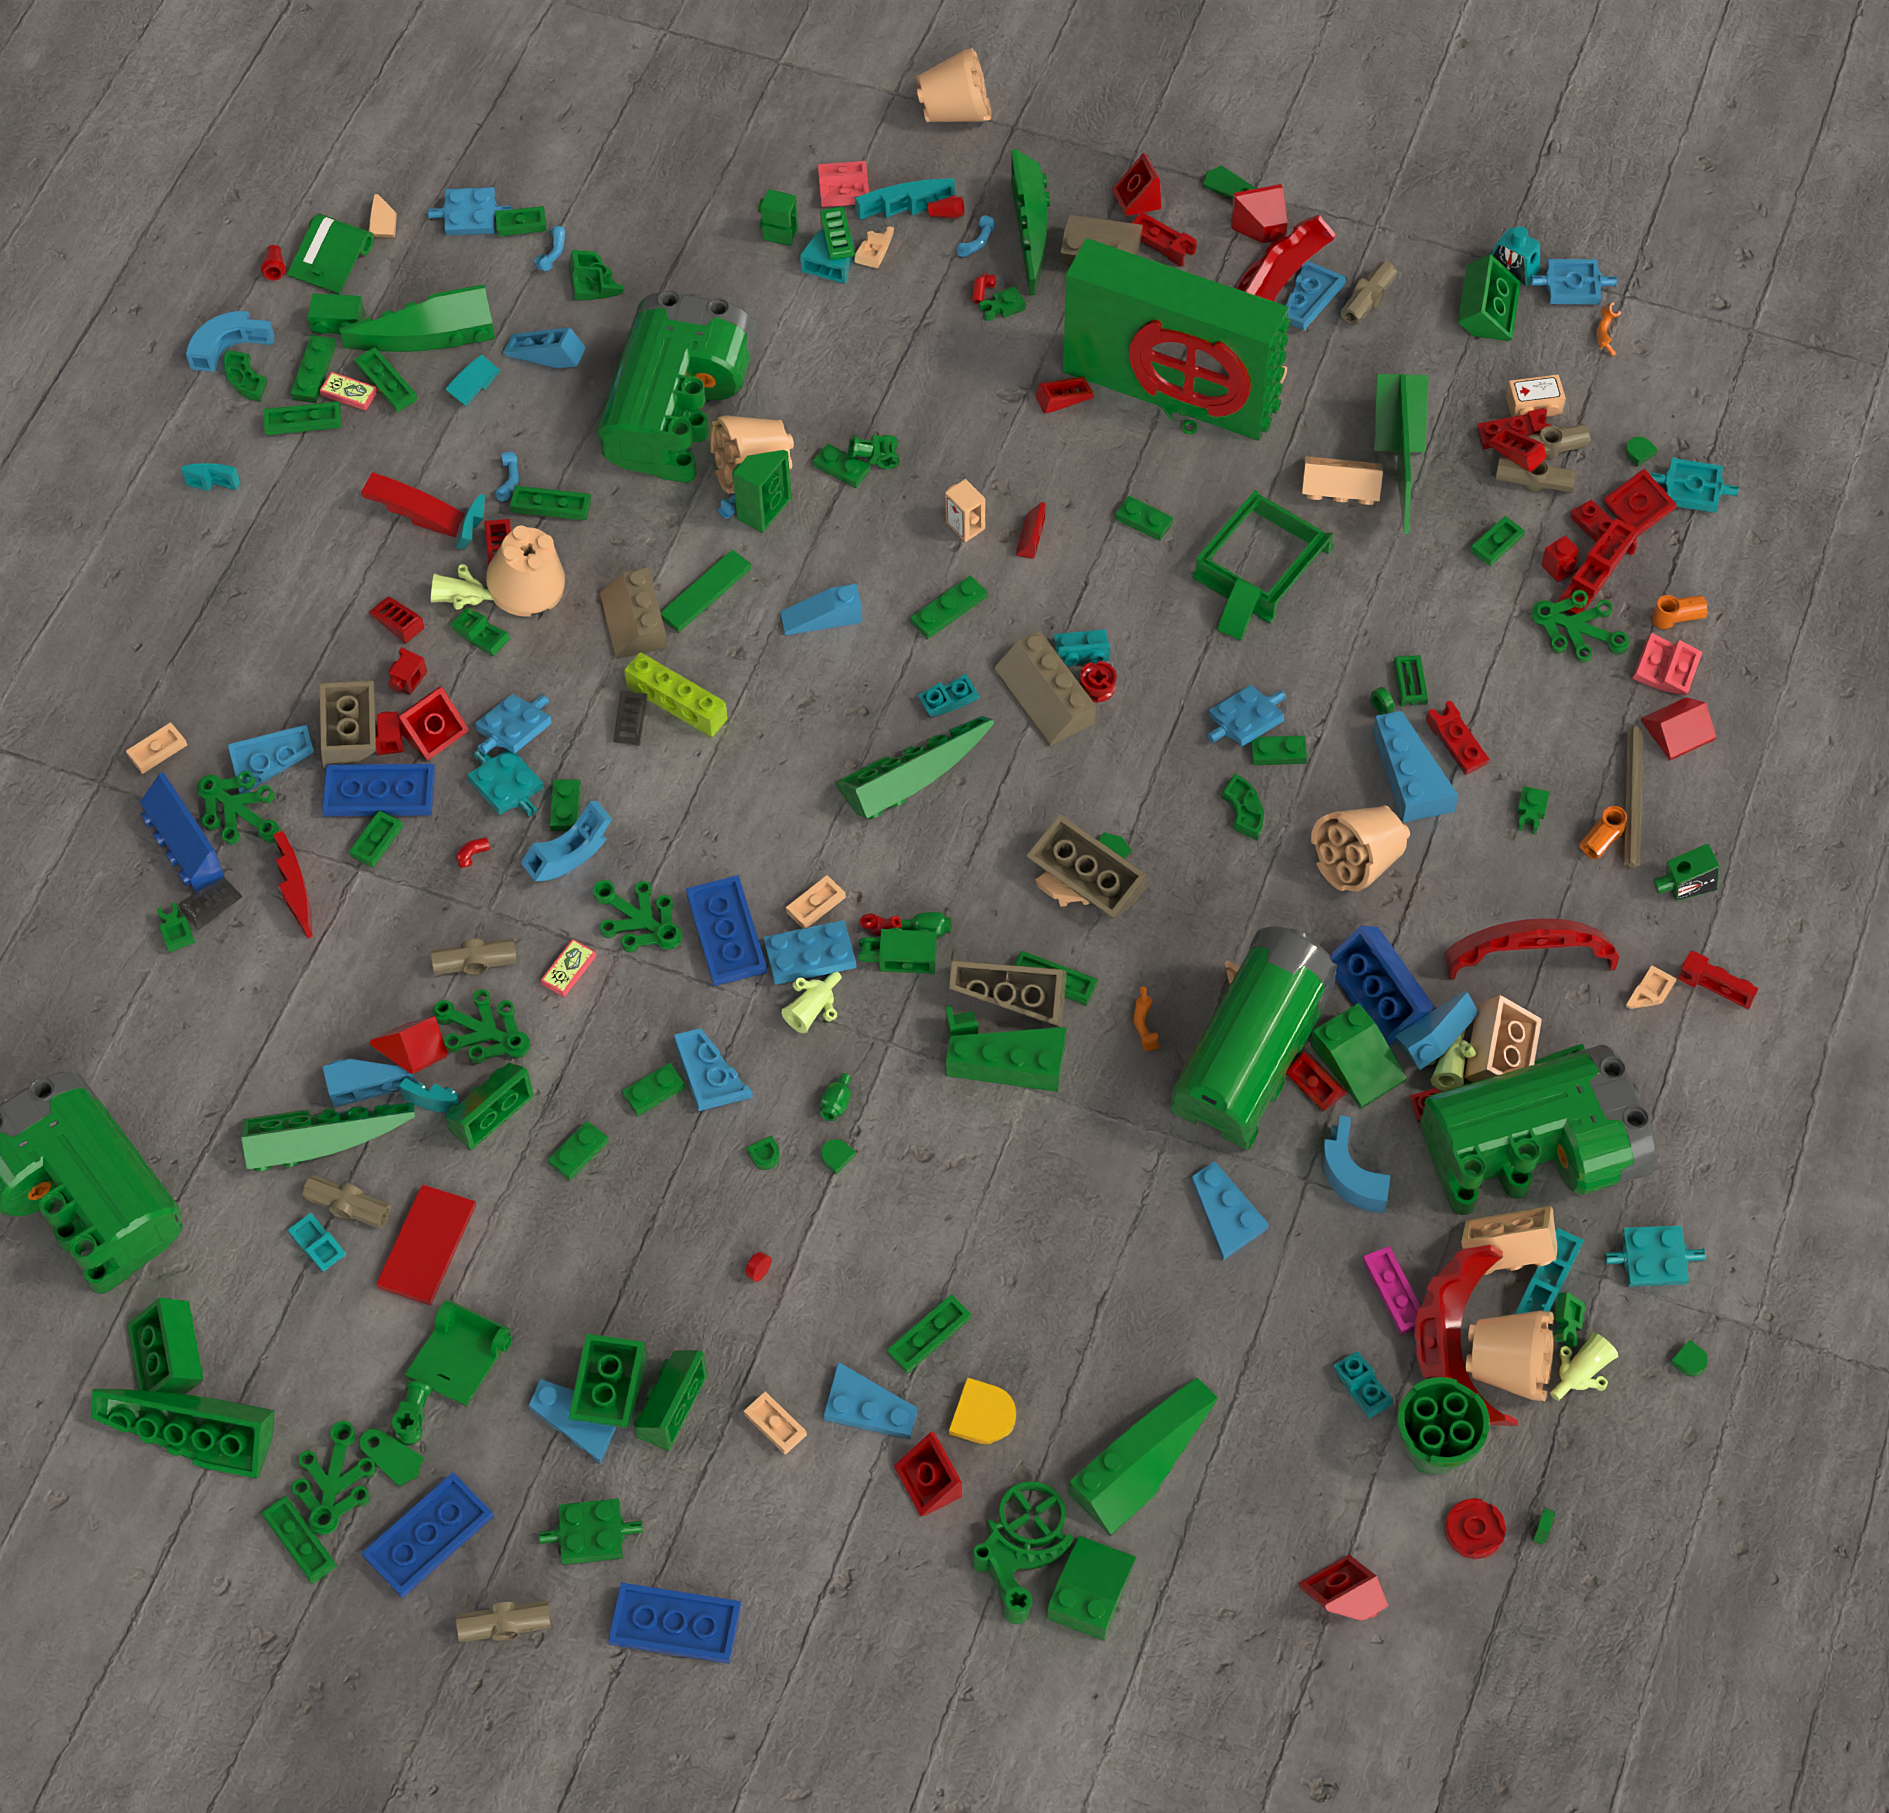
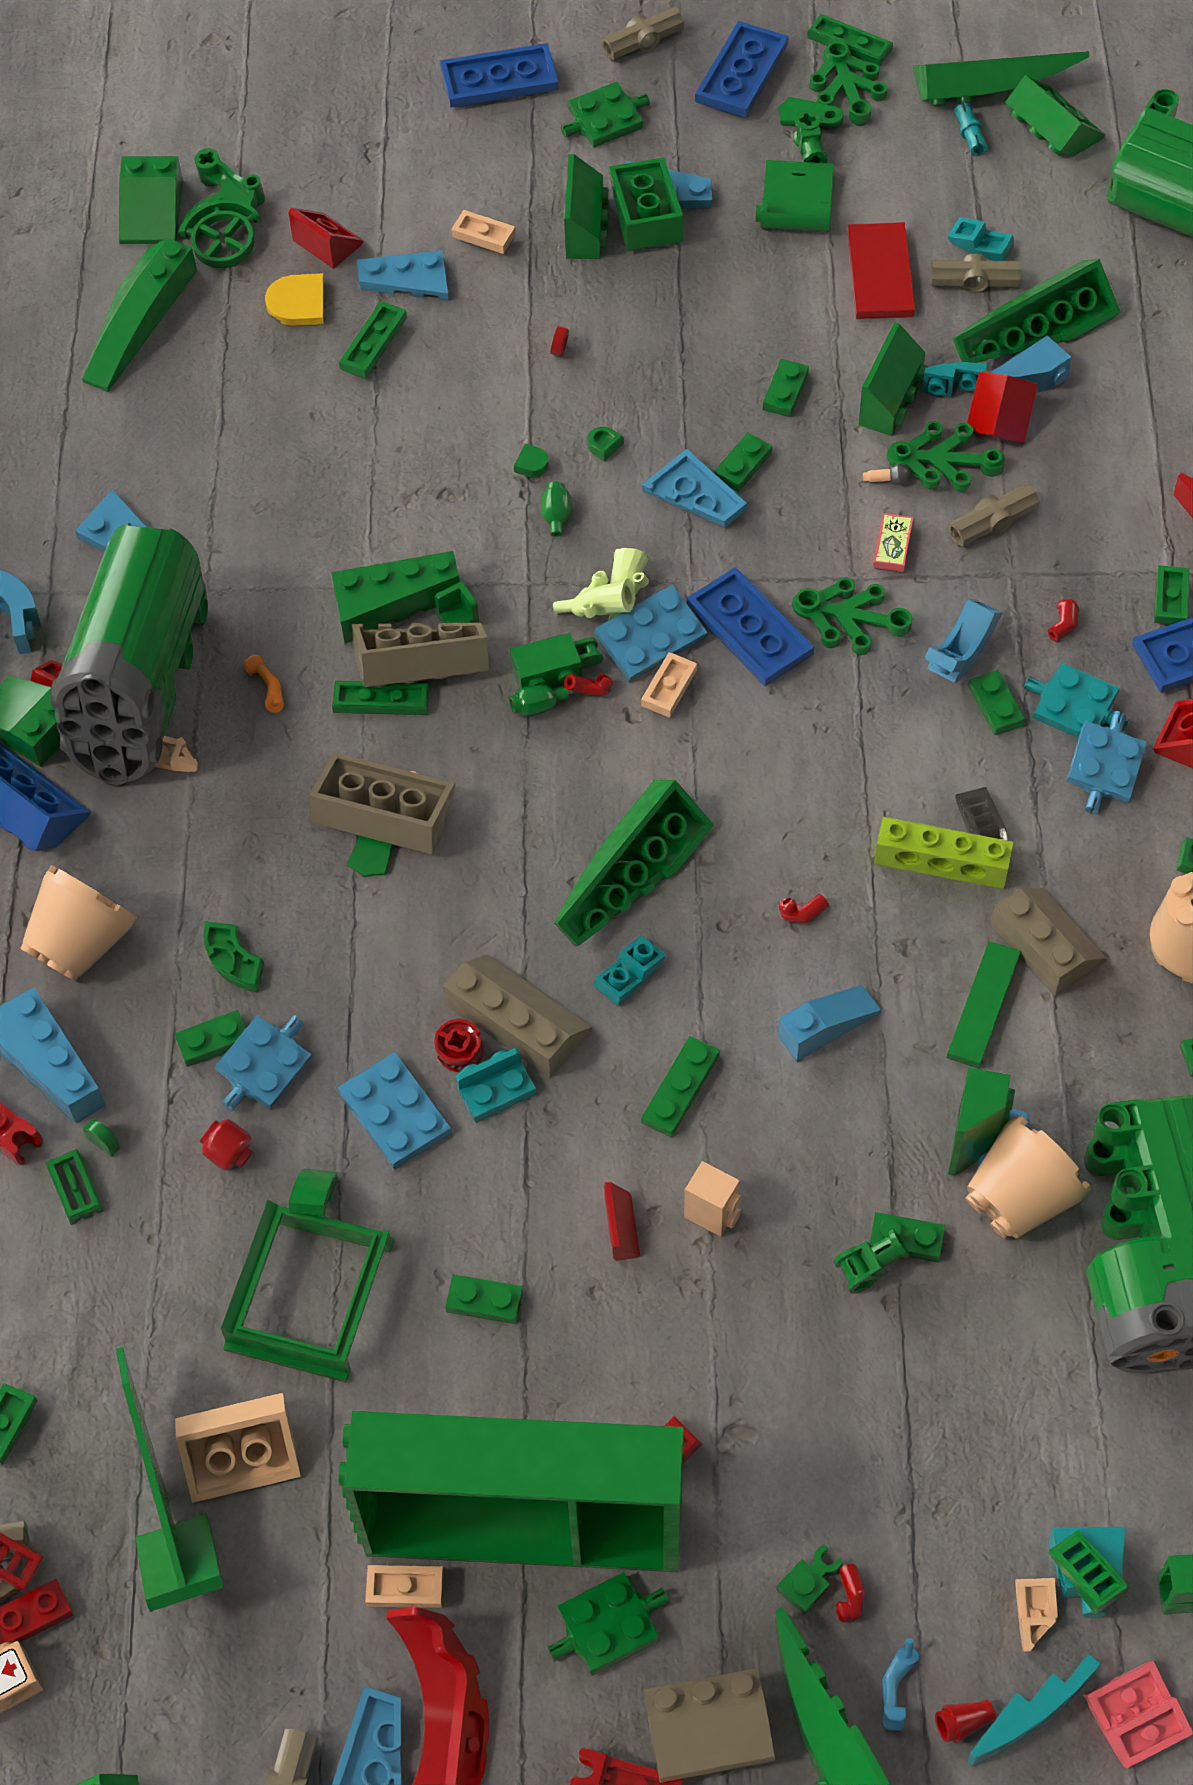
camera: 160 degrees right, 0 degrees up
(249, 1373) = (971, 129): none -> teal pin
(531, 1027) = (897, 474): none -> piece
(801, 695) = (802, 913): none -> red arm
(838, 981) = (600, 598): none -> yellowish green piece
(1161, 657) = (394, 1110): none -> dark azure plate
(1291, 664) = (226, 1144): none -> red head

